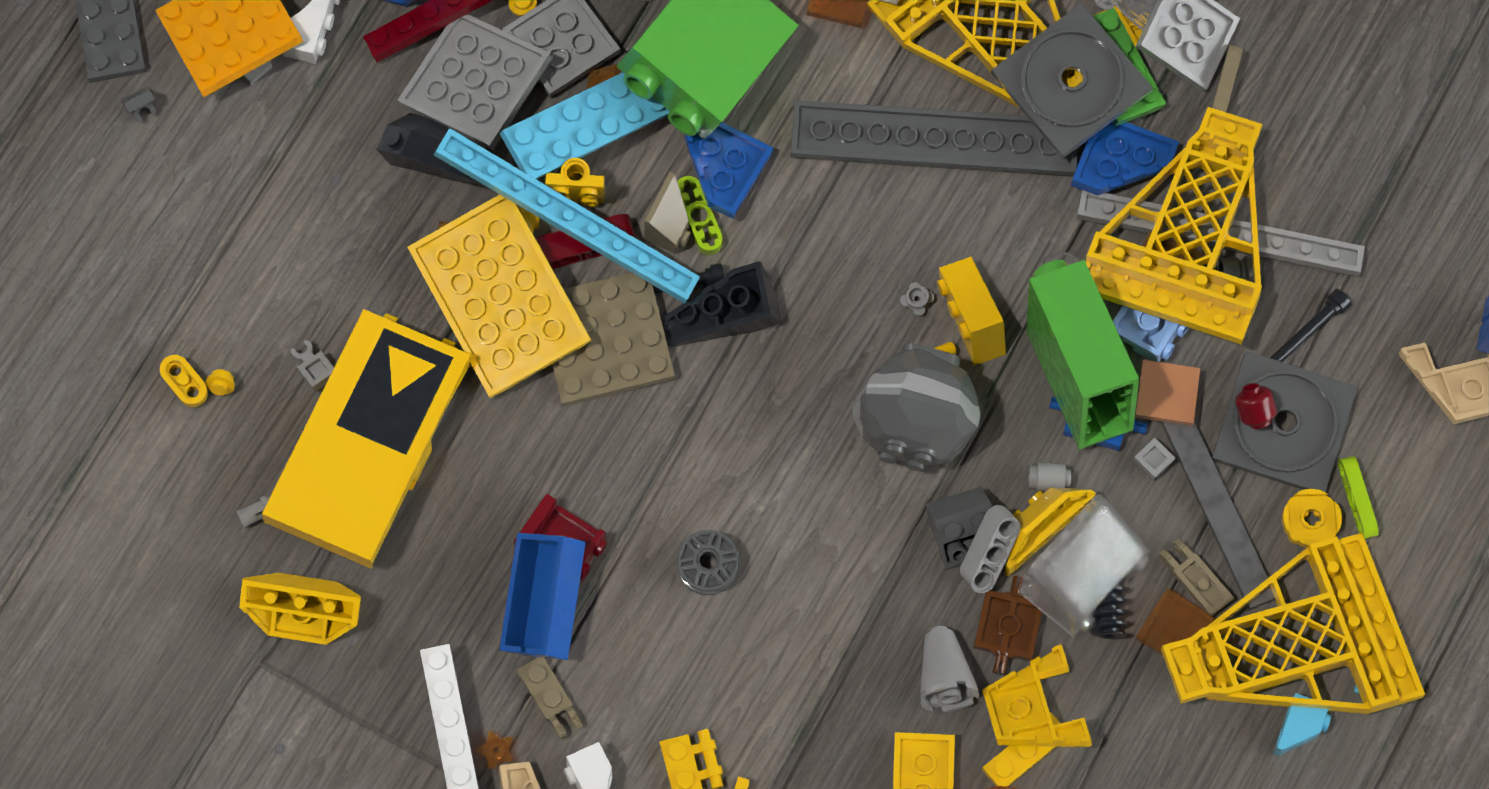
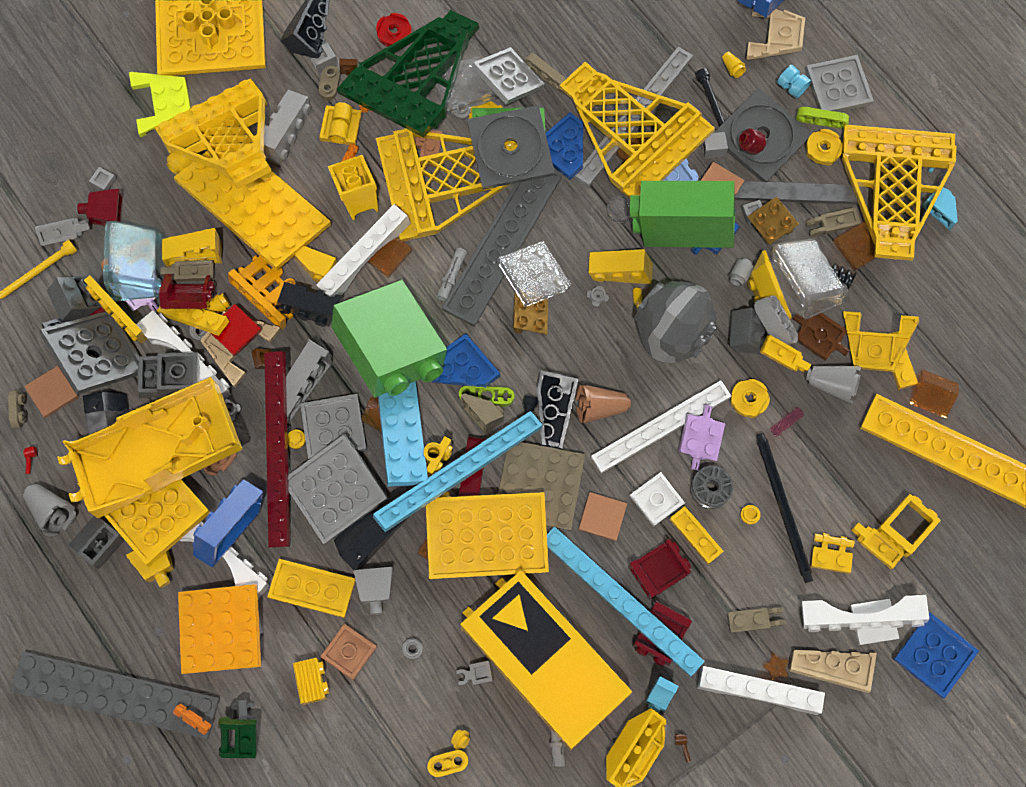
camera: 65 degrees left, 0 degrees up
(103, 47) = (192, 719): none -> orange axle
(108, 118) = (244, 738): none -> dark green plate
(213, 166) = (310, 681): none -> yellow brick
(273, 197) = (348, 652): none -> nougat tile
(309, 265) = (414, 642): none -> light grey plate
(333, 114) = (311, 588): none -> yellow plate
(343, 664) = (681, 739): none -> reddish brown hand
(369, 189) = (374, 587): none -> light grey torso
(388, 608) = (661, 694): none -> medium azure arch
(471, 580) = (673, 621): none -> dark red panel
(493, 510) = (623, 602): none -> medium azure plate
(542, 596) = (698, 594): blue piece -> none
(600, 438) = (602, 516): none -> nougat tile
(630, 570) = (696, 535): none -> yellow plate
(657, 498) = (657, 499): none -> white plate
(695, 632) = (750, 514): none -> yellow plate
(727, 673) = (784, 507): none -> black piece
(756, 365) = (599, 403): none -> nougat cone
(765, 461) = (659, 427): none -> white plate
(773, 520) = (701, 437): none -> lavender plate
(844, 220) = (530, 318): none -> pearl gold hinge
(854, 92) = (448, 282): none -> light grey pin
(854, 629) = (786, 422): none -> clear pink axle
(874, 578) = (759, 393): none -> yellow plate
(904, 198) = (534, 273): none -> clear plate
(949, 582) = (784, 354): none -> yellow hinge
(1150, 489) = (773, 220): none -> pearl gold hinge
(1229, 361) = (715, 146): none -> light grey panel
(1377, 339) = (734, 65): none -> yellow cone
(1393, 432) = (793, 81): none -> medium azure wheel
(1426, 501) = (839, 84): none -> light grey plate

